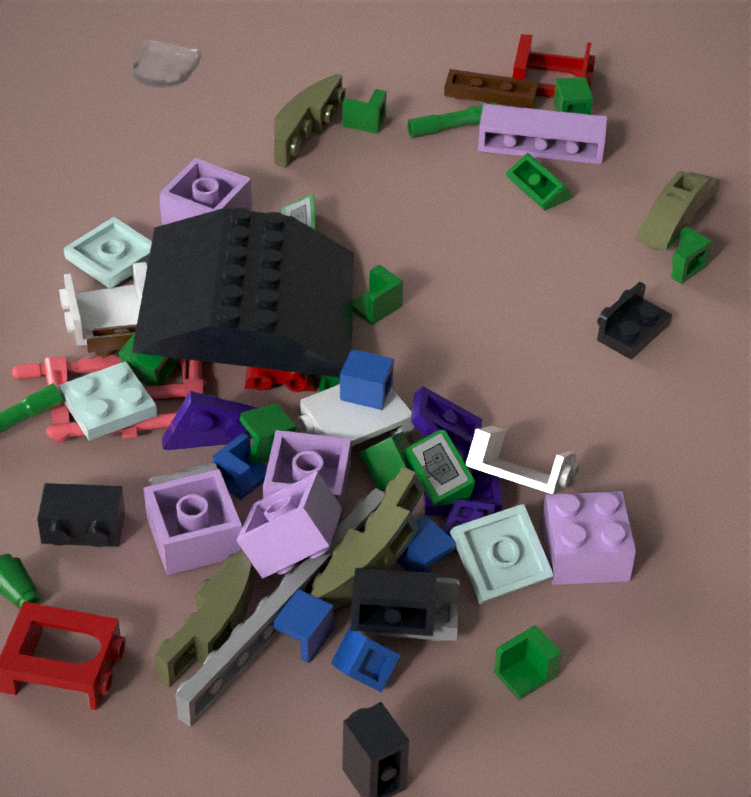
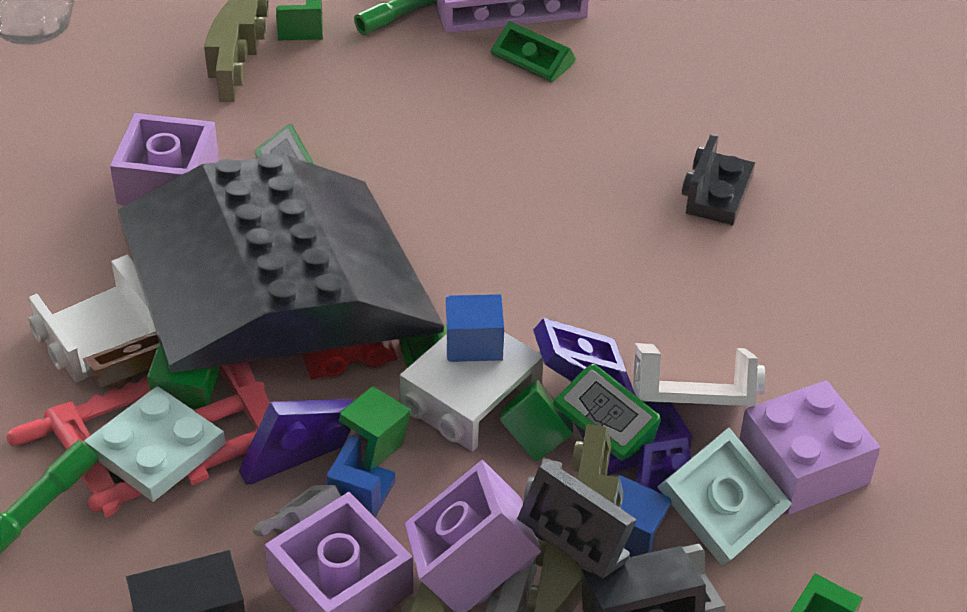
camera: 20 degrees left, 0 degrees up
(109, 252) = (70, 254): light aqua plate -> none
(302, 454) = (442, 448): lavender brick -> none
(357, 530) = (577, 520): none -> black bracket
(383, 296) = (425, 223): green panel -> none
(676, 208) = (701, 47): olive slope -> none
(690, 256) = (740, 91): green bracket -> none

